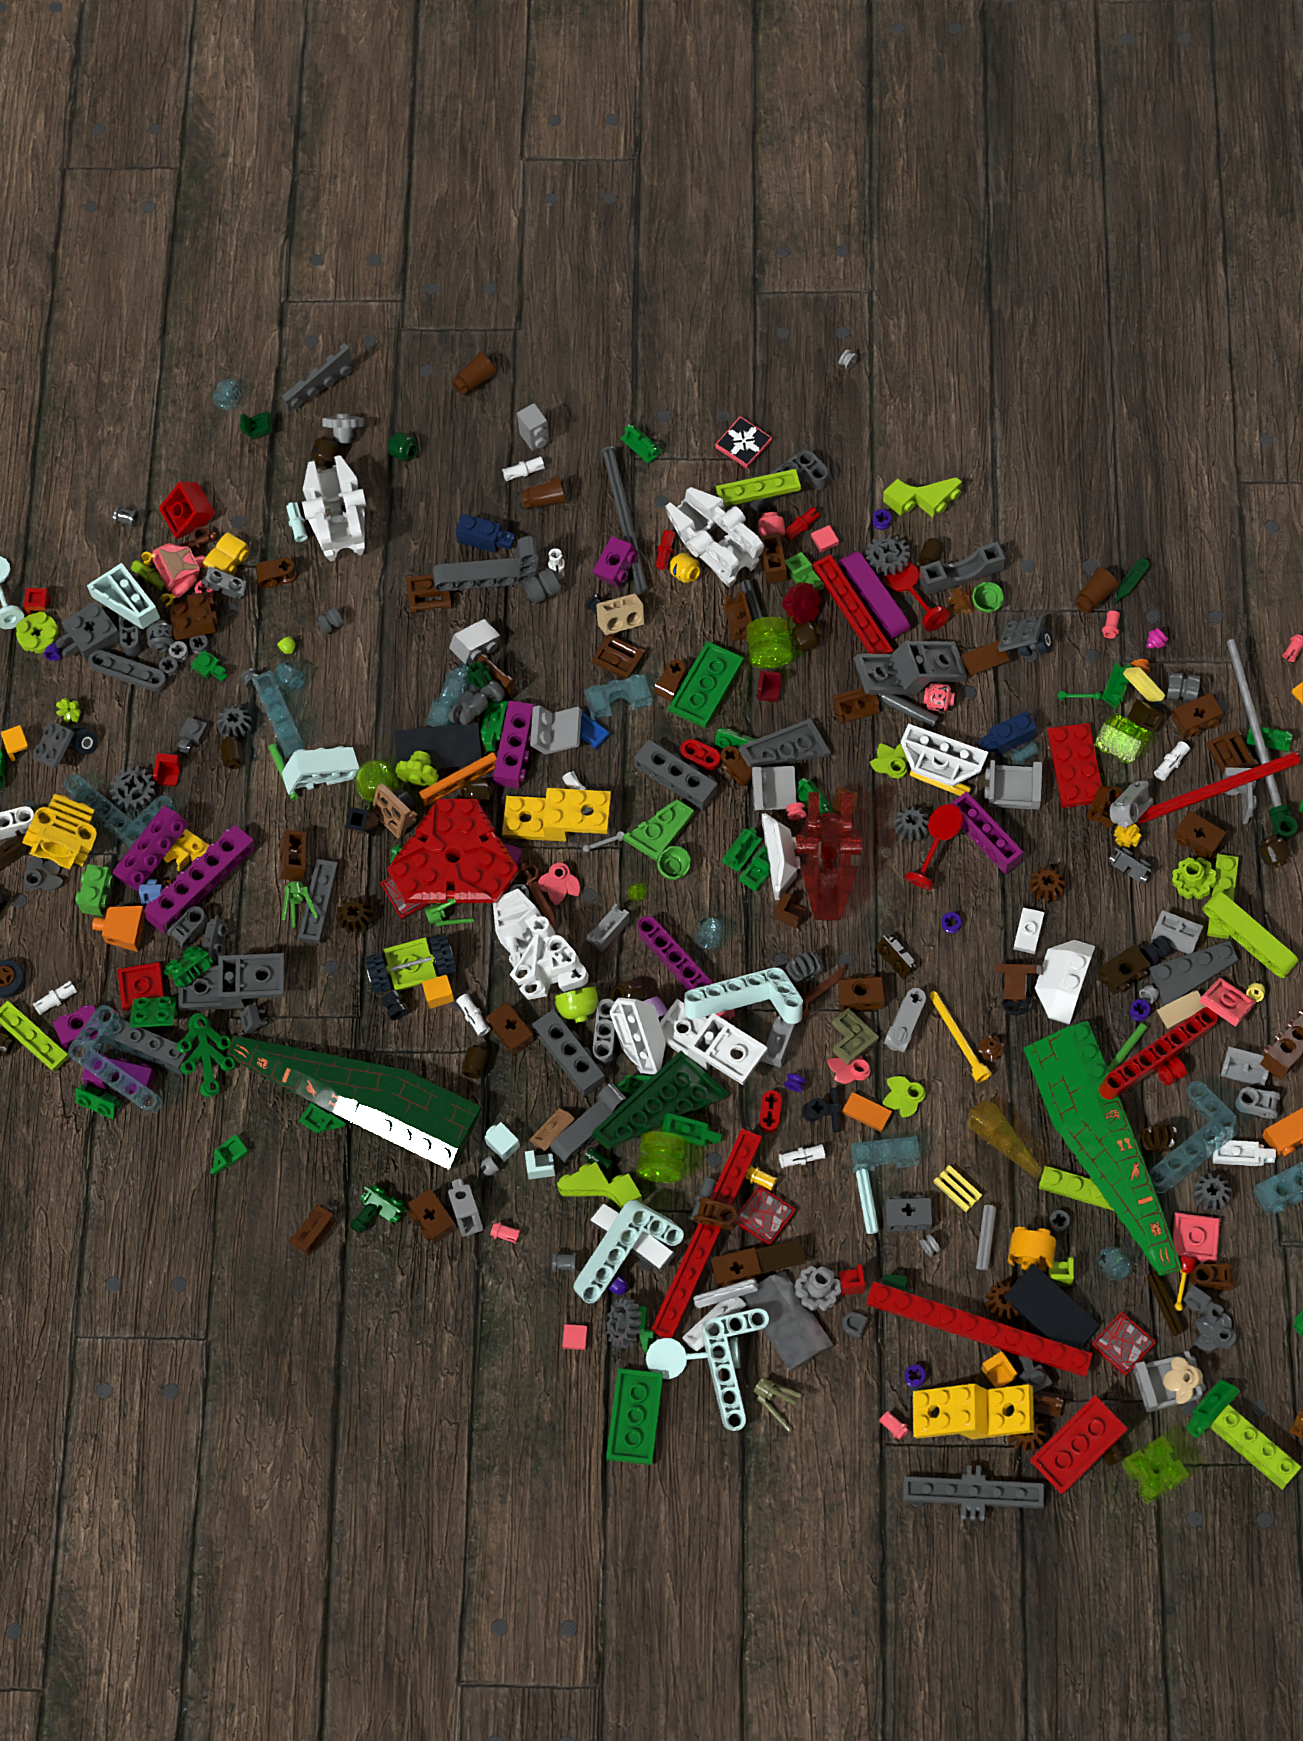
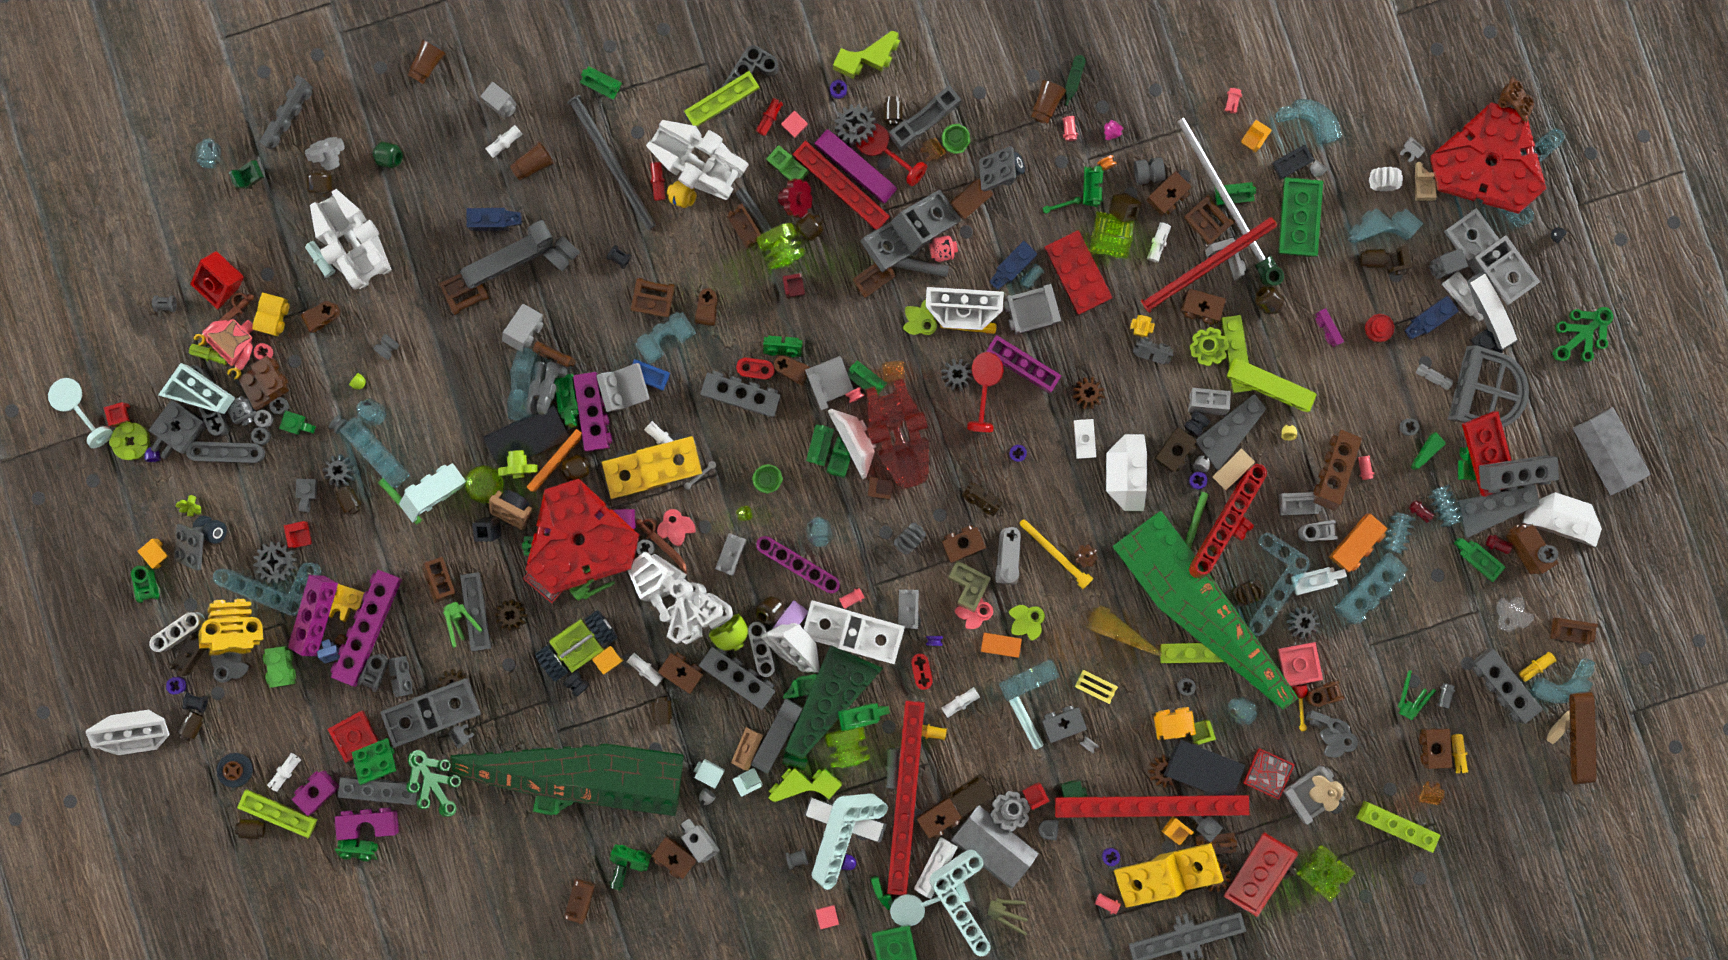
camera: 25 degrees left, 20 degrees up
(108, 1068) = (356, 825): clear light blue beam -> none
(122, 926) = (316, 691): orange torso -> none
(177, 968) = (384, 707): green hinge -> none
(217, 579) = (278, 342): dark grey hinge -> none
(228, 1154) = (485, 858): green slope -> none
(478, 675) = (539, 364): dark green gear -> none
(505, 1232) = (739, 849): coral pin -> none
(556, 564) = (570, 229): white pin -> none
(614, 551) = (612, 218): magenta brick -> none
(620, 614) = (641, 260): tan brick -> none
(623, 1322) = (864, 897): dark grey gear -> none
(661, 830) = (745, 450): bright green wing -> none
(706, 684) = (738, 300): green plate -> none
(711, 1213) = (908, 783): reddish brown piece -> none
(725, 1293) = (938, 842): light grey axle -> none
(743, 442) = (691, 51): tile -> none
(746, 990) = (870, 579): light aqua beam -> none
(765, 1215) = (946, 762): tile -> none
(770, 524) = (744, 130): coral head -> none
(773, 559) = (757, 161): reddish brown brick -> none
(787, 745) = (828, 337): dark grey wing -> none
(820, 989) = (923, 556): copper sword -> none
(823, 1109) = (965, 657): black piece -> none
(986, 1237) = (1132, 722): light grey axle -> none
(1016, 985) = (1090, 493): reddish brown piece -> none
(1102, 804) = (1117, 304): reddish brown piece -> none
(1131, 804) = (1139, 299): light grey piece -> none
(1144, 684) = (1116, 181): light yellow tile -> none
(1165, 1304) = (1292, 729): dark brown axle -> none
(1211, 1407) = (1354, 804): green hinge -> none
(1227, 1001) = (1269, 451): coral tile -> none

